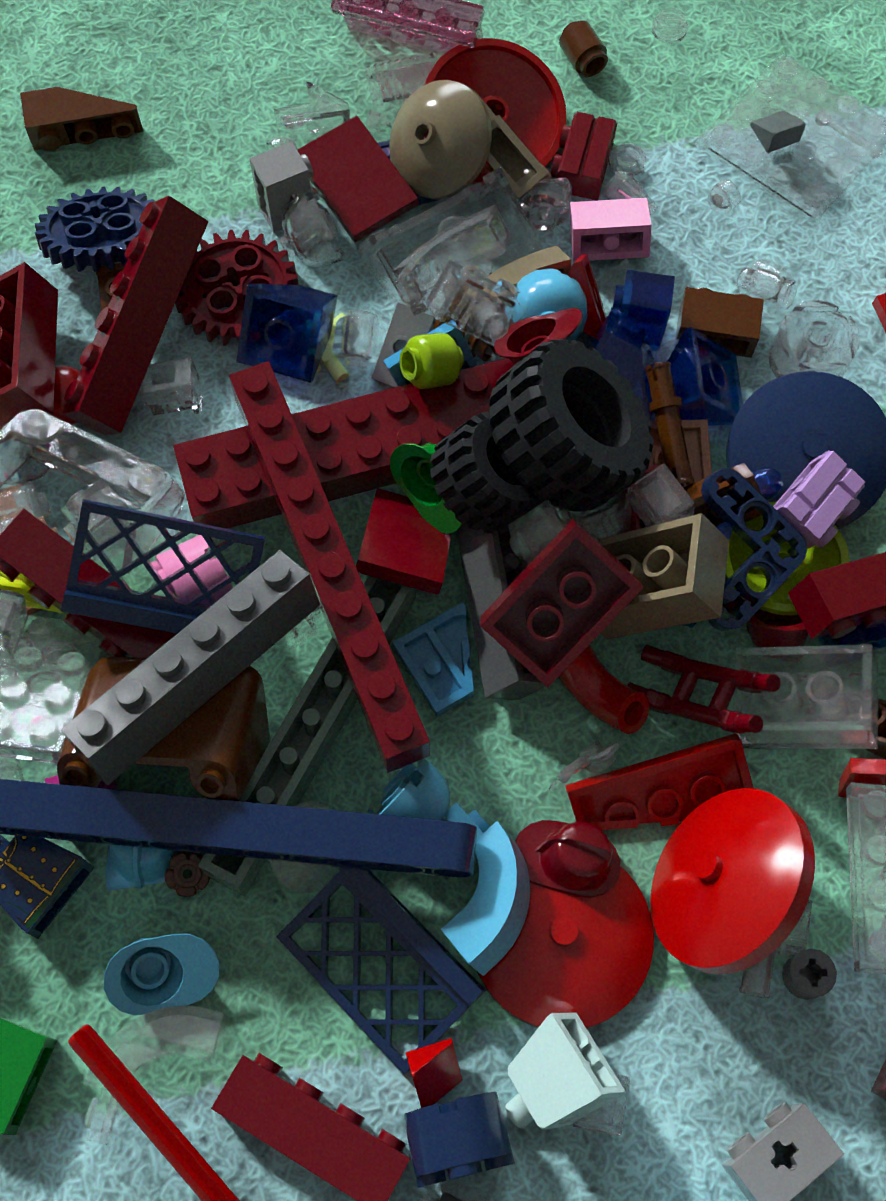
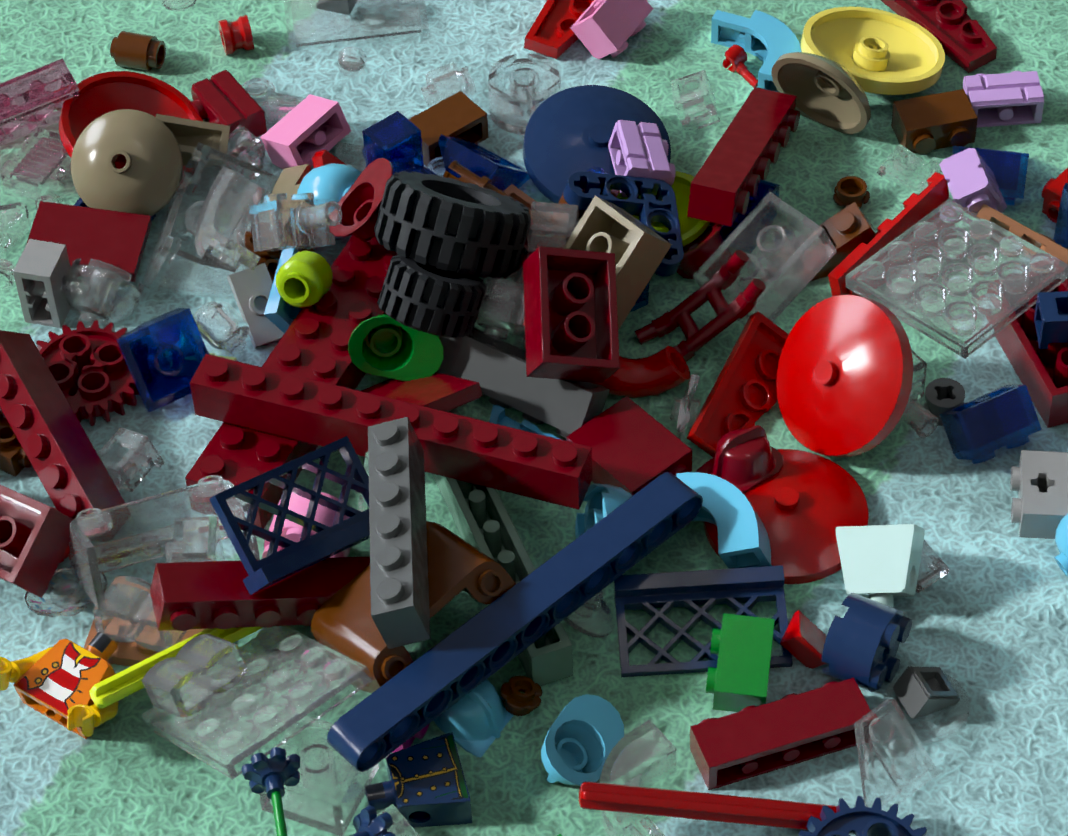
camera: 45 degrees left, 20 degrees down
(352, 1040) = (742, 663): none -> green brick
(505, 755) = (631, 447): none -> dark red brick
(667, 95) = (236, 35): none -> red wheel
(818, 1043) = (991, 423): none -> clear blue brick

